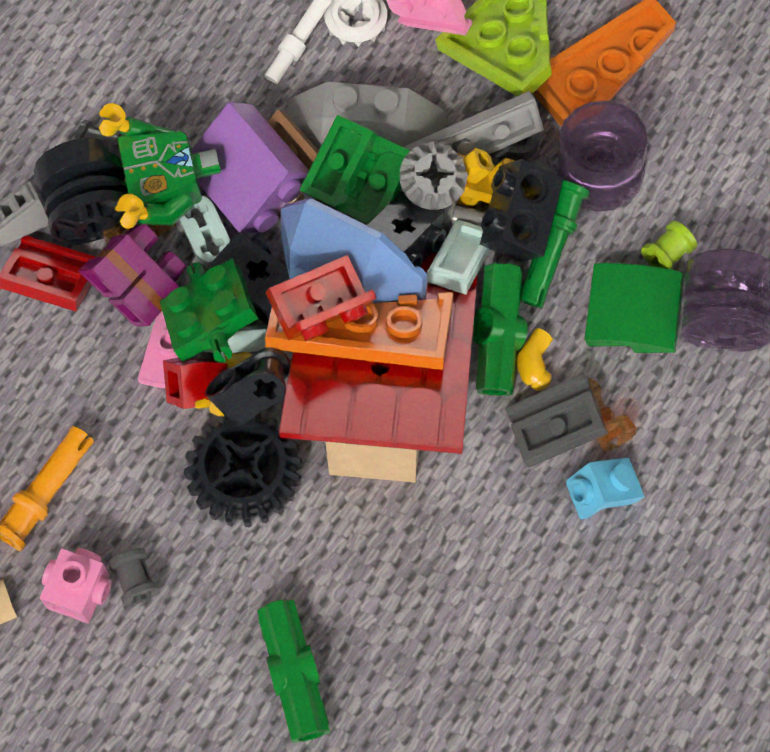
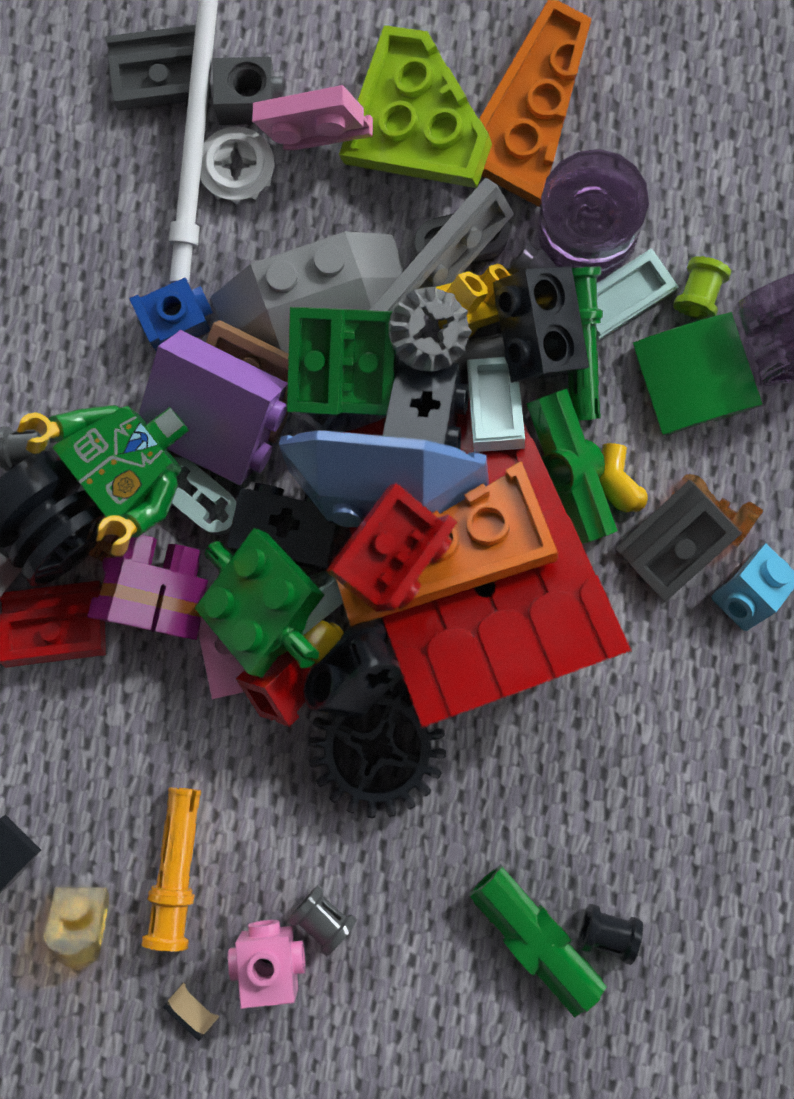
camera: 30 degrees left, 15 degrees up
(256, 89) = (190, 319): none -> blue brick
(353, 694) = (610, 934): none -> black bush
(610, 229) = (632, 291): none -> light aqua tile

